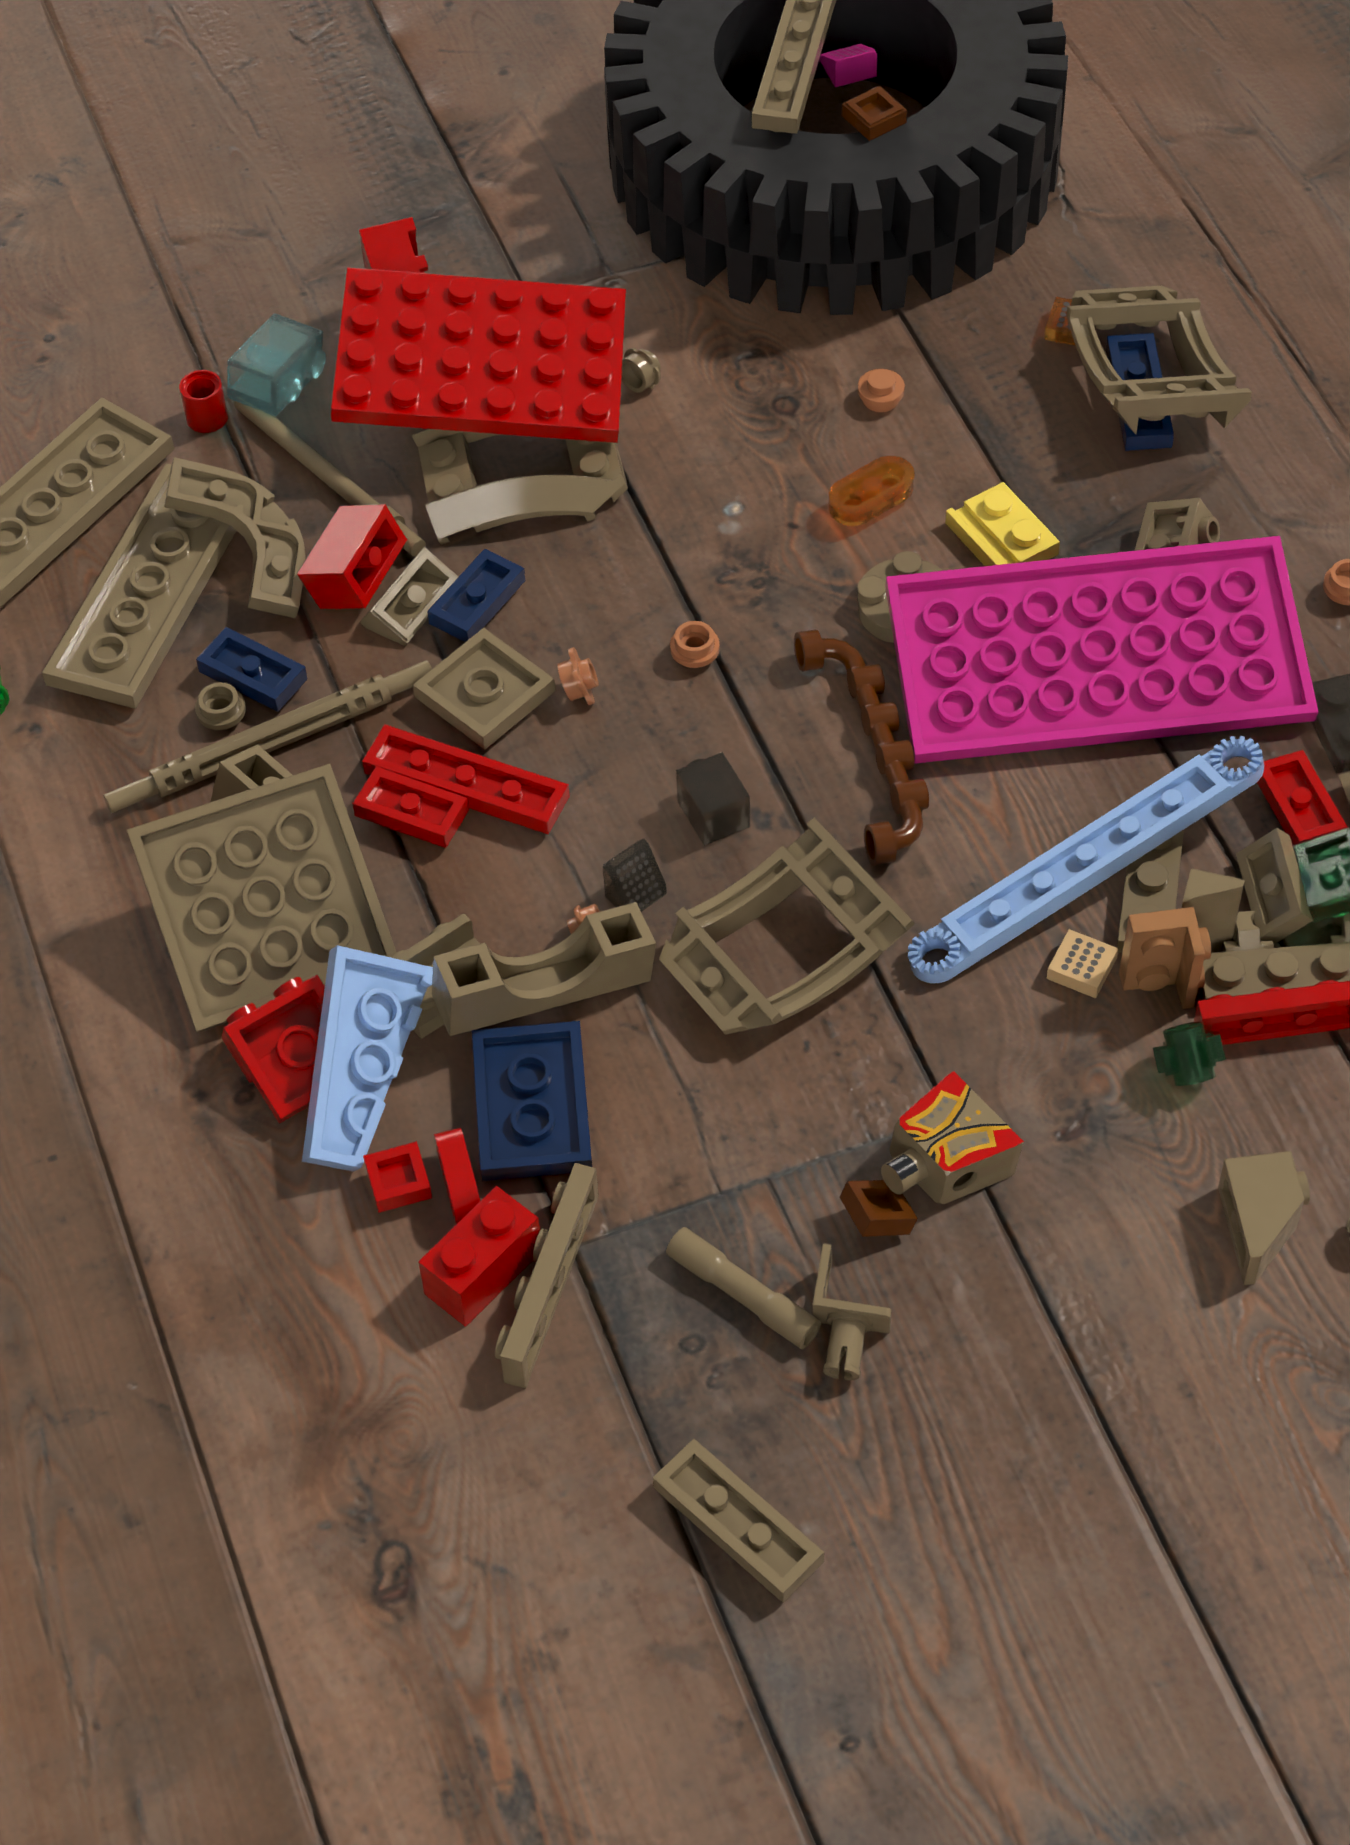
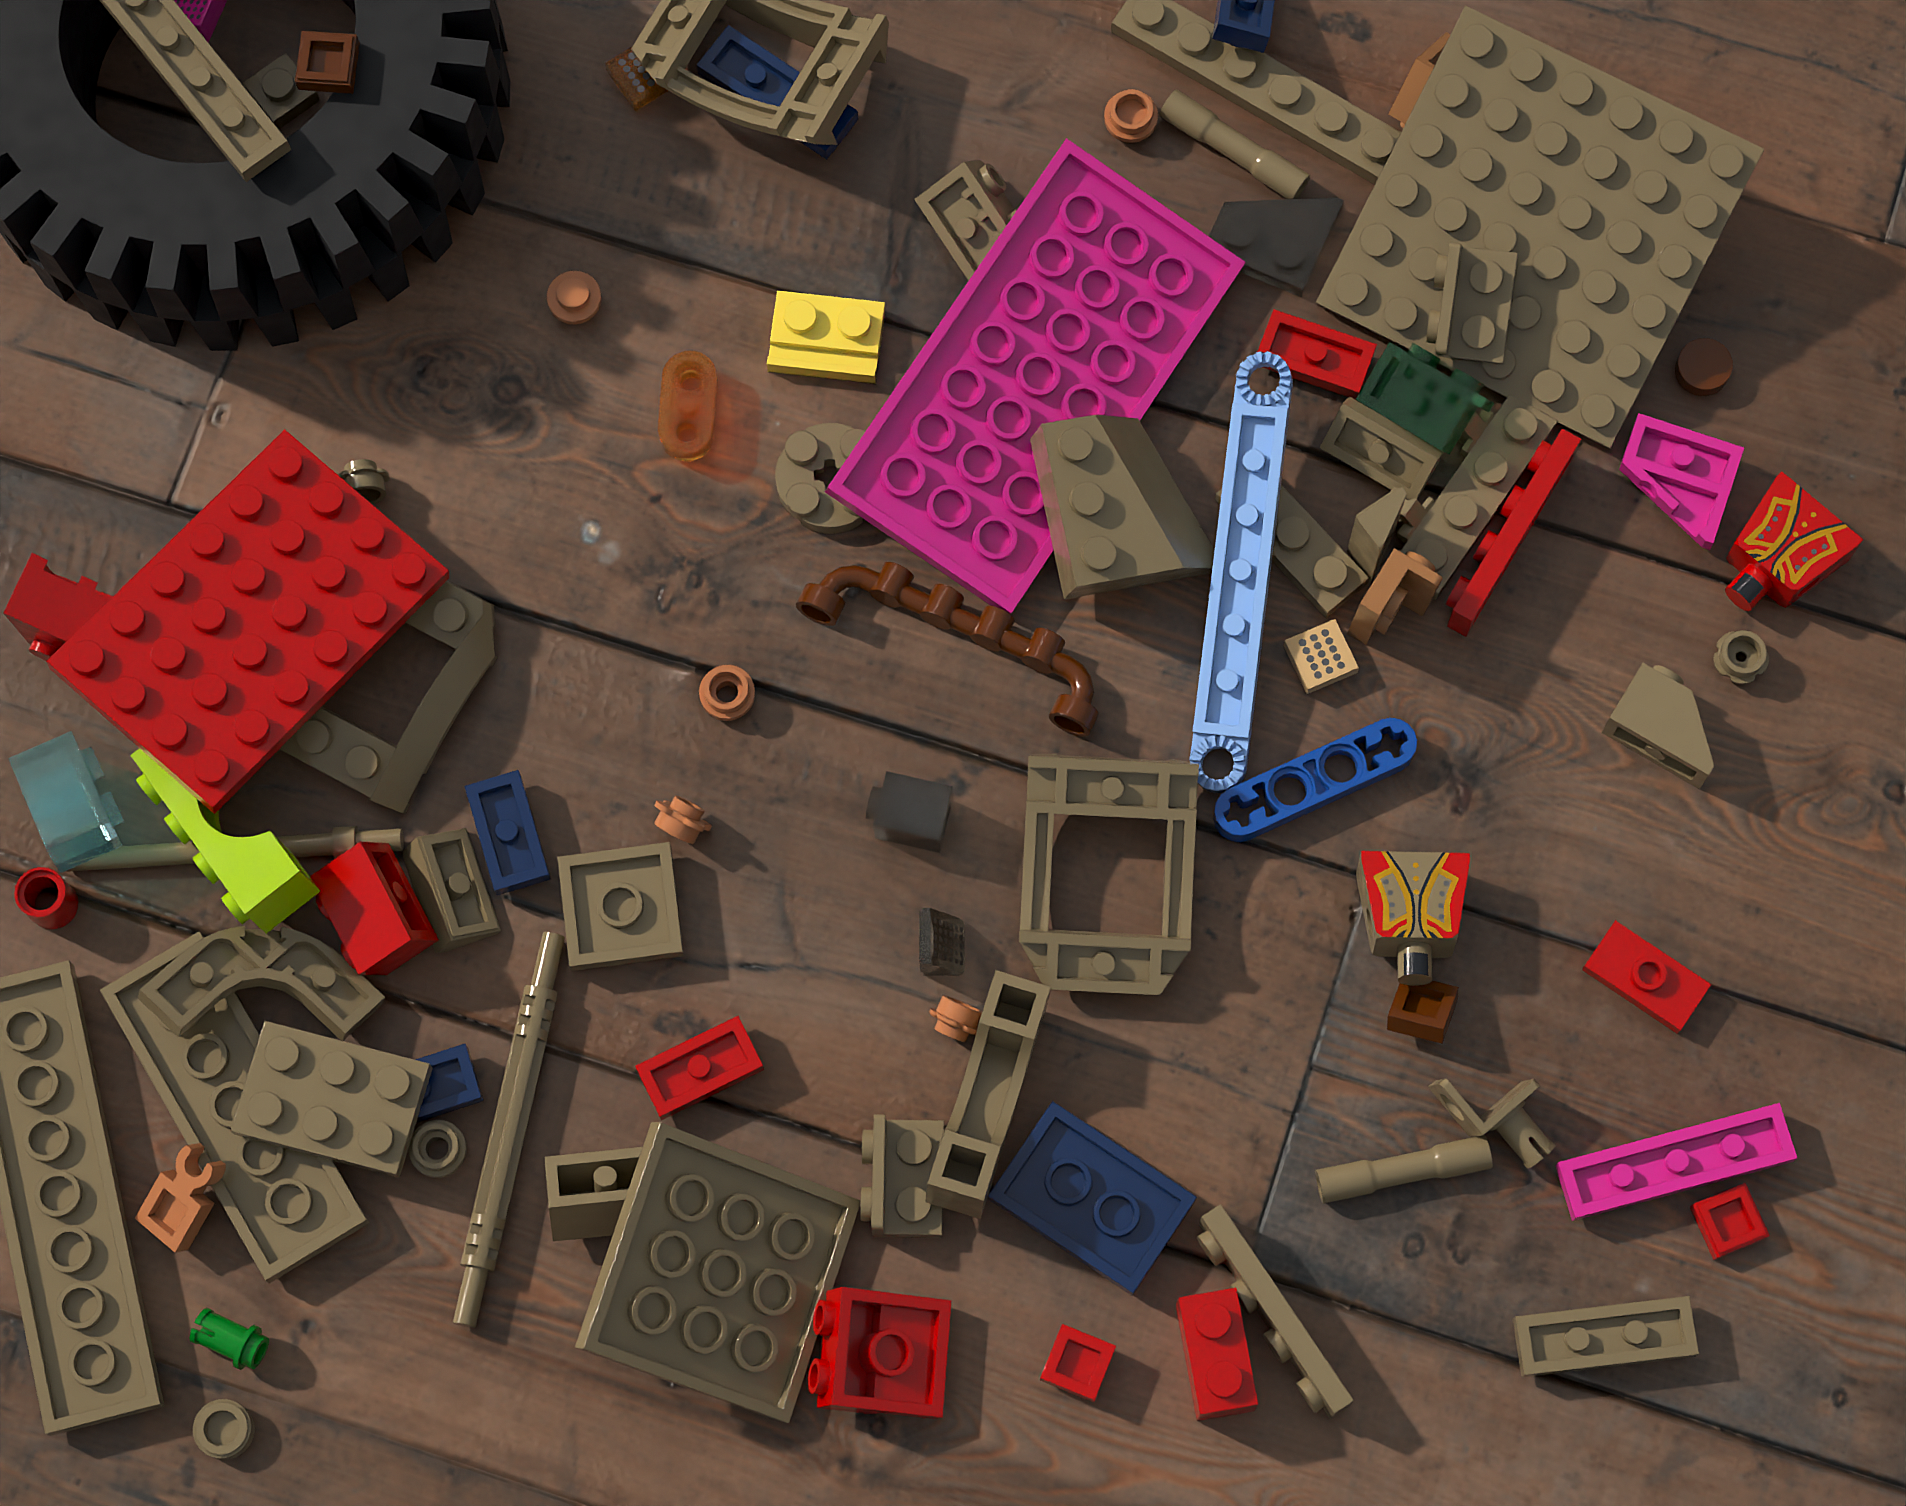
camera: 50 degrees left, 20 degrees up
(55, 595) = (177, 1202): none -> nougat plate
(198, 620) = (331, 1099): none -> dark tan plate
(314, 466) = (258, 870): none -> lime arch
(363, 1029) = (923, 1287): light blue wing -> none
(457, 1172) = (1121, 1314): red beam -> none
(487, 783) = (709, 997): red plate -> none
(917, 1550) = (1729, 1221): none -> red tile
(927, 1471) = (1676, 1161): none -> dark pink plate
(981, 1031) = (1311, 773): none -> blue beam
(1051, 749) = (1114, 507): none -> dark tan wedge
(1055, 1349) = (1646, 977): none -> red plate
(1189, 1053) = (1483, 654): clear green gear -> none

